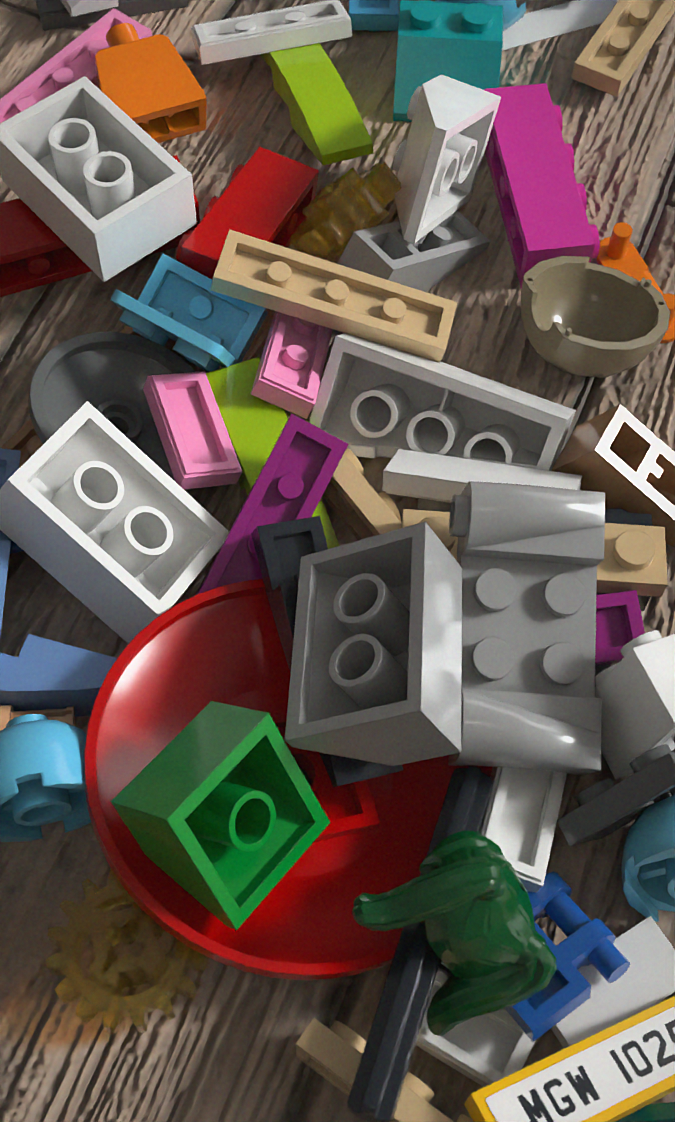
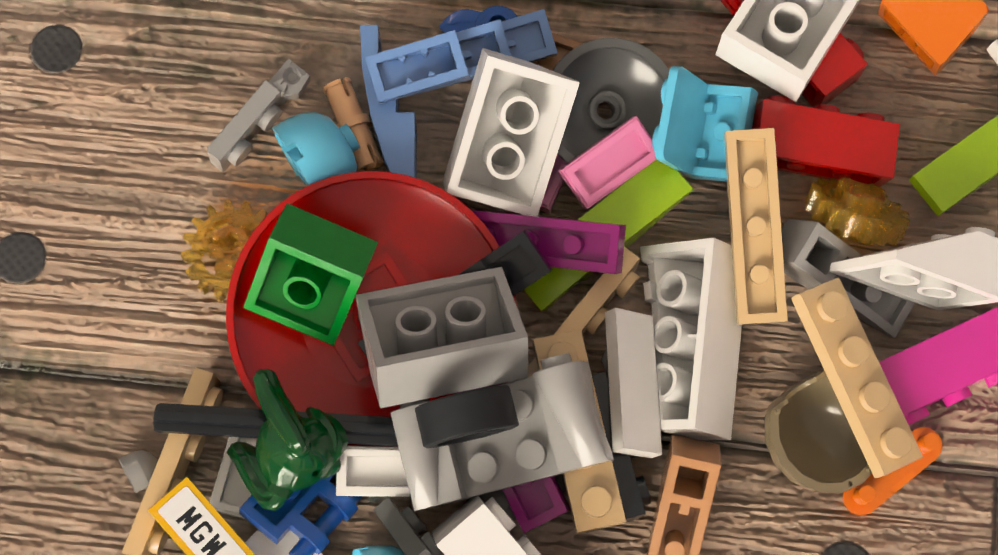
camera: 75 degrees right, 15 degrees up
(292, 364) = (694, 215): bright pink tile -> none
(510, 634) = (466, 416): none -> black tyre
(542, 256) = (857, 378): none -> tan plate

